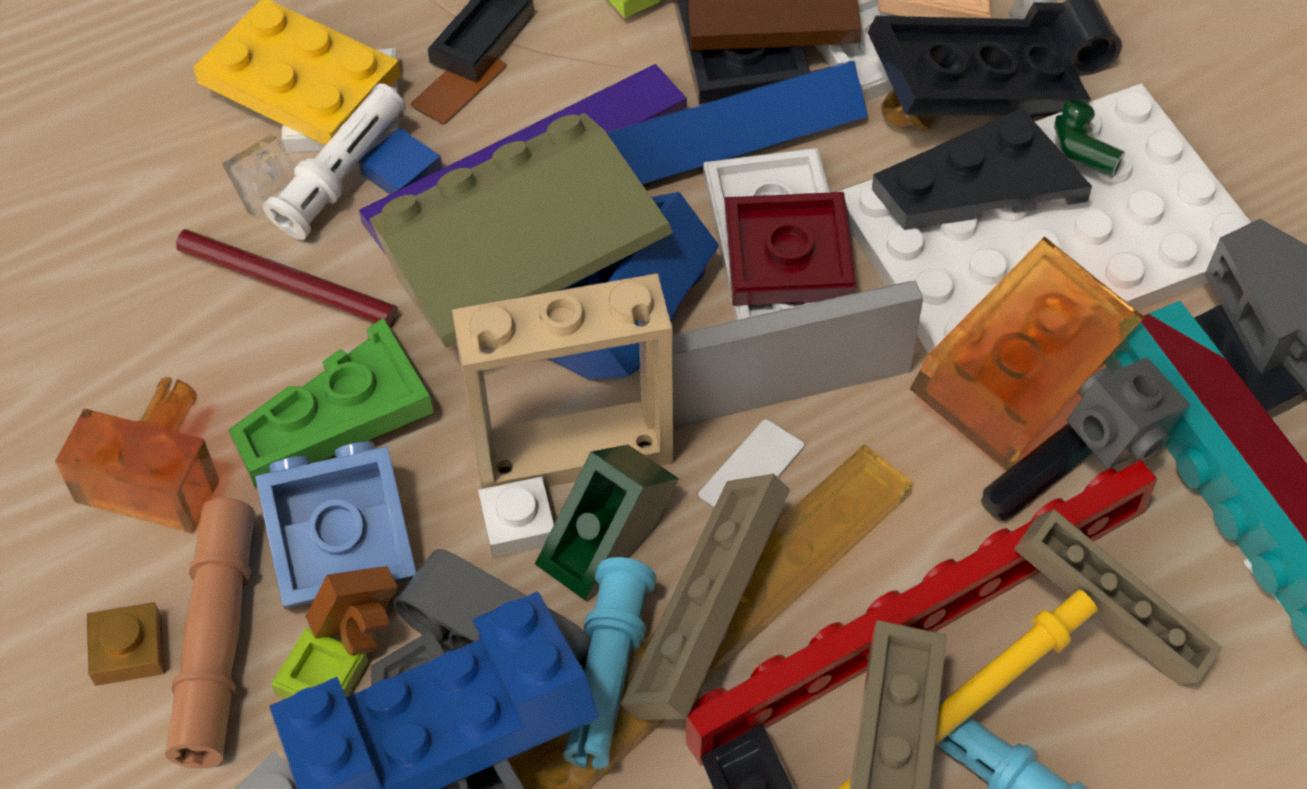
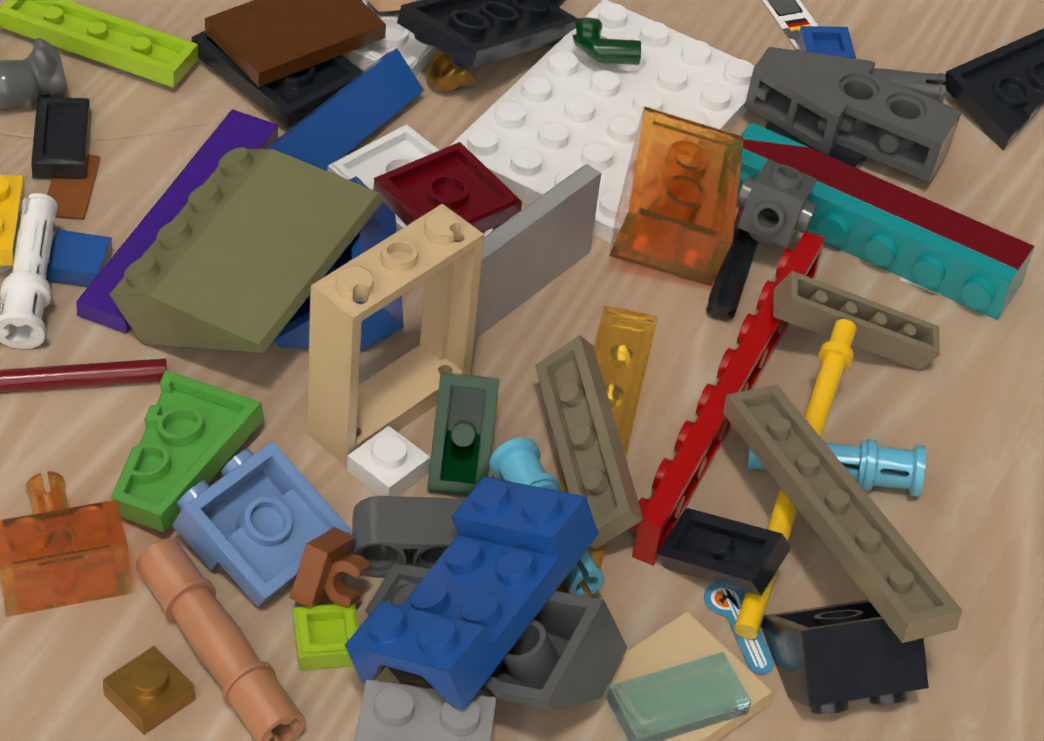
camera: 40 degrees left, 10 degrees down
(762, 453) = (528, 348): white sticker -> none
(980, 171) = (547, 91): black wing -> none

